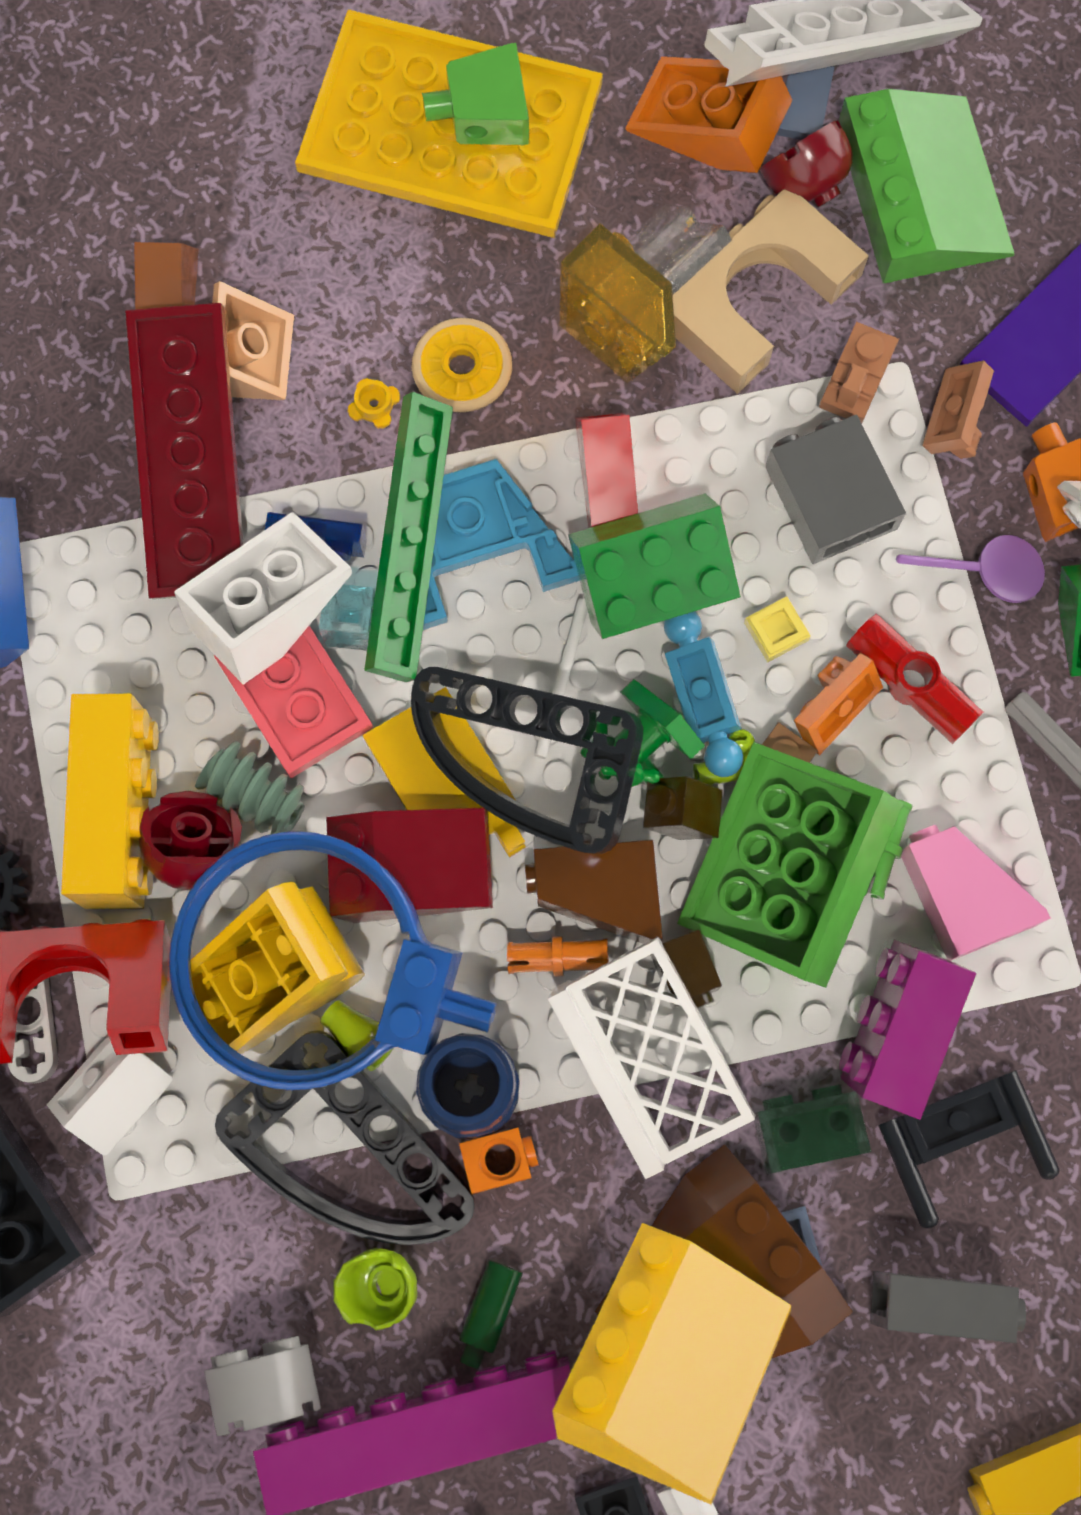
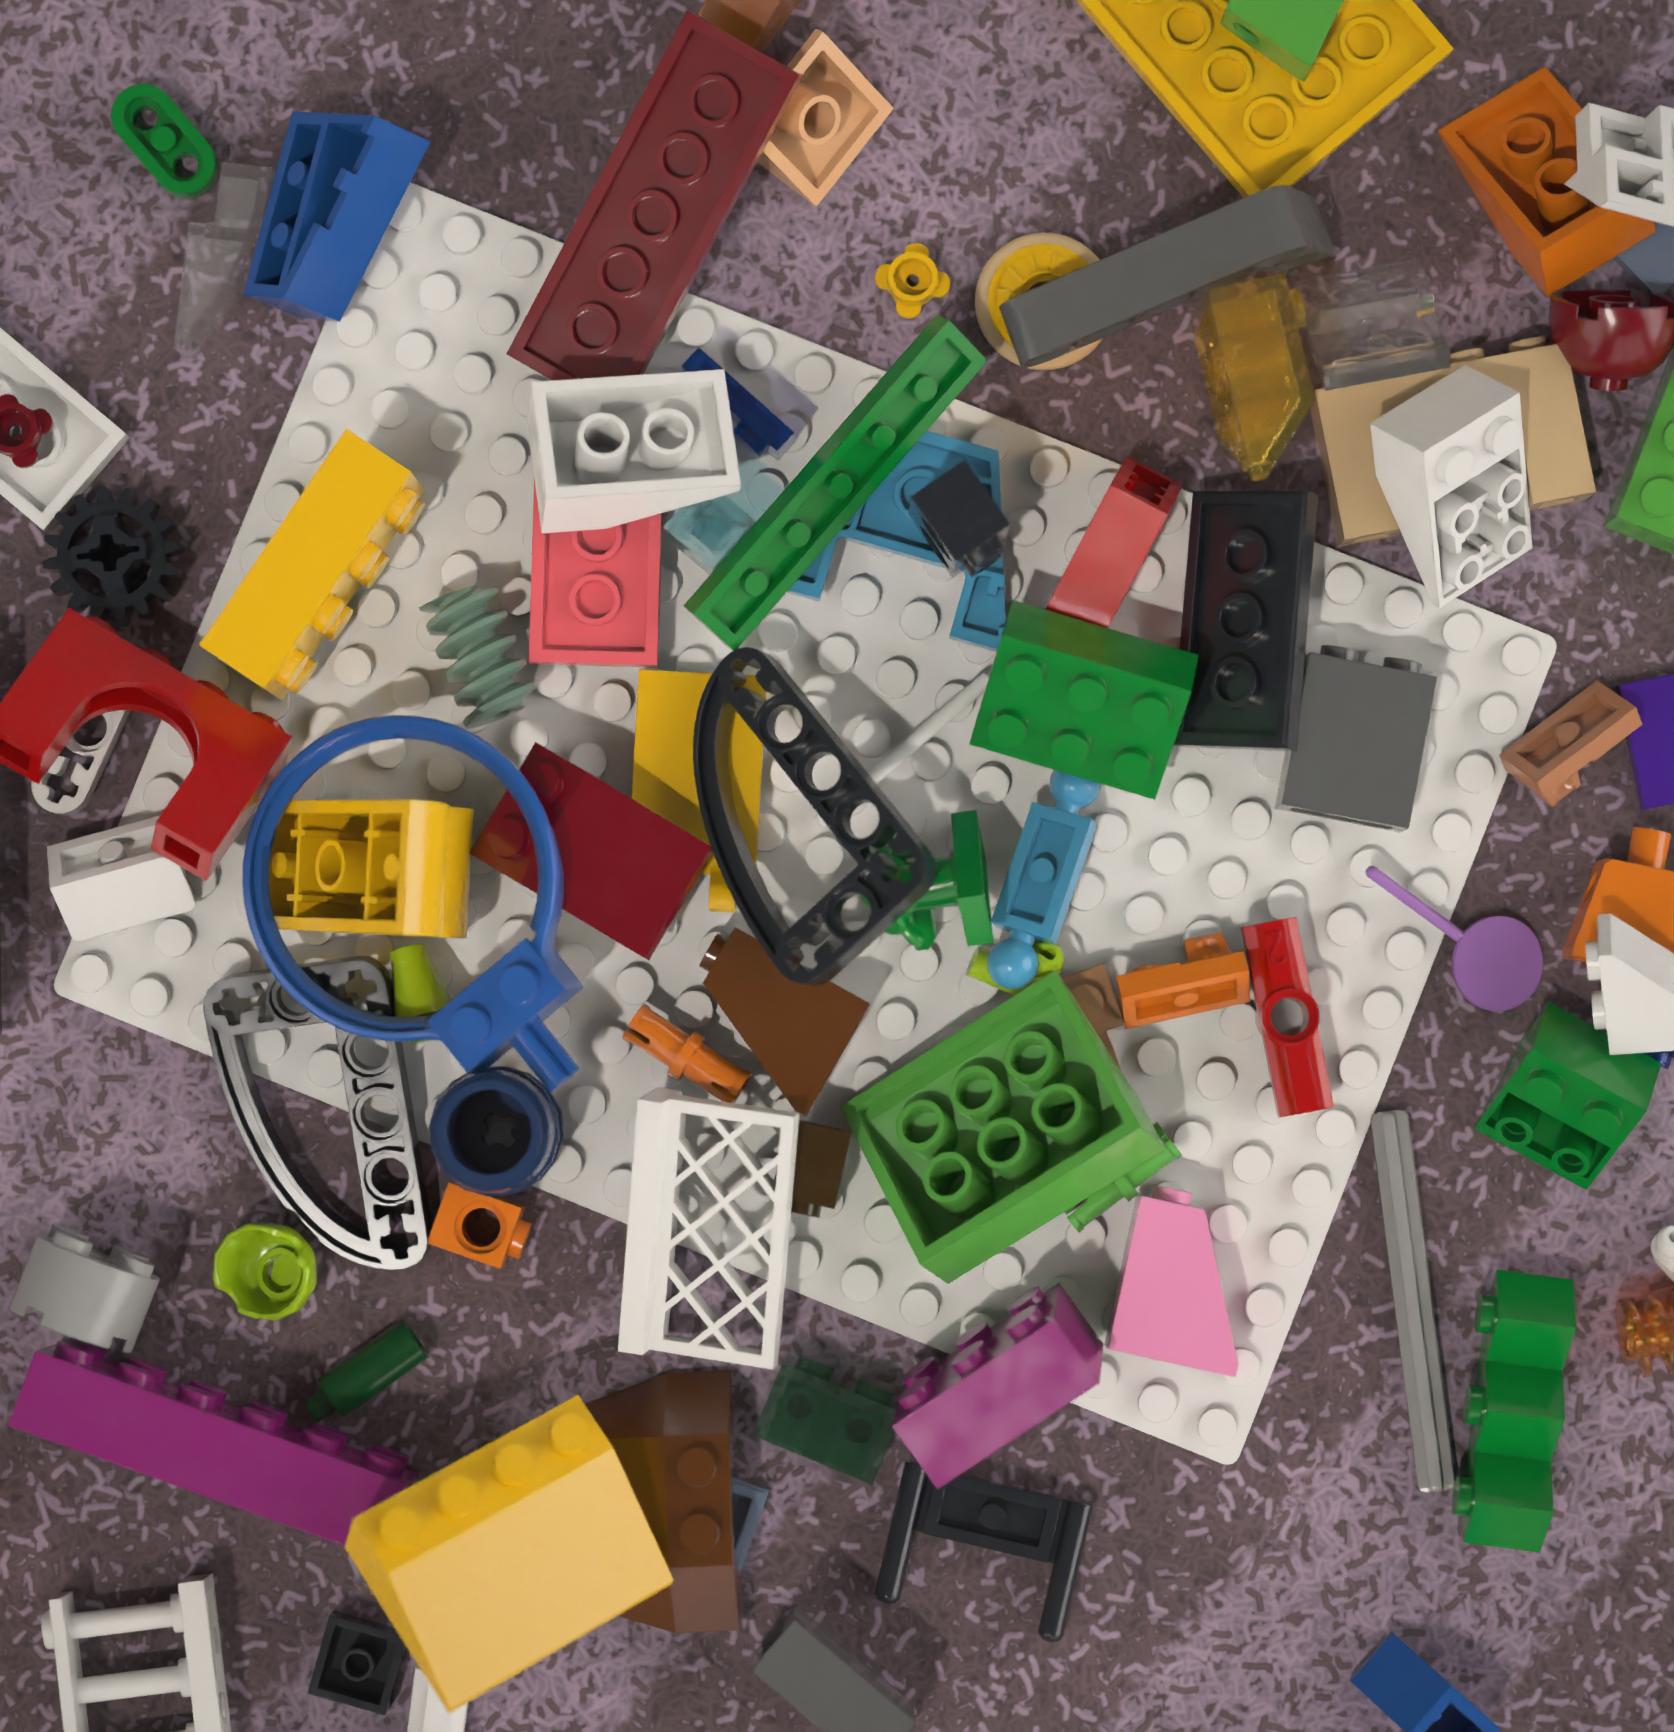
camera: 35 degrees right, 10 degrees up
(186, 837) = (374, 663): dark red cylinder -> none
(503, 503) = (960, 521): none -> black brick
(520, 292) = (1258, 233): none -> dark grey beam
(683, 808) = (928, 991): dark brown brick -> none
(717, 452) = (1247, 617): none -> black tile
(777, 629) = (1179, 856): light yellow tile -> none
(783, 296) = (1456, 479): none -> white slope
(858, 372) = (1487, 621): nougat hinge -> none

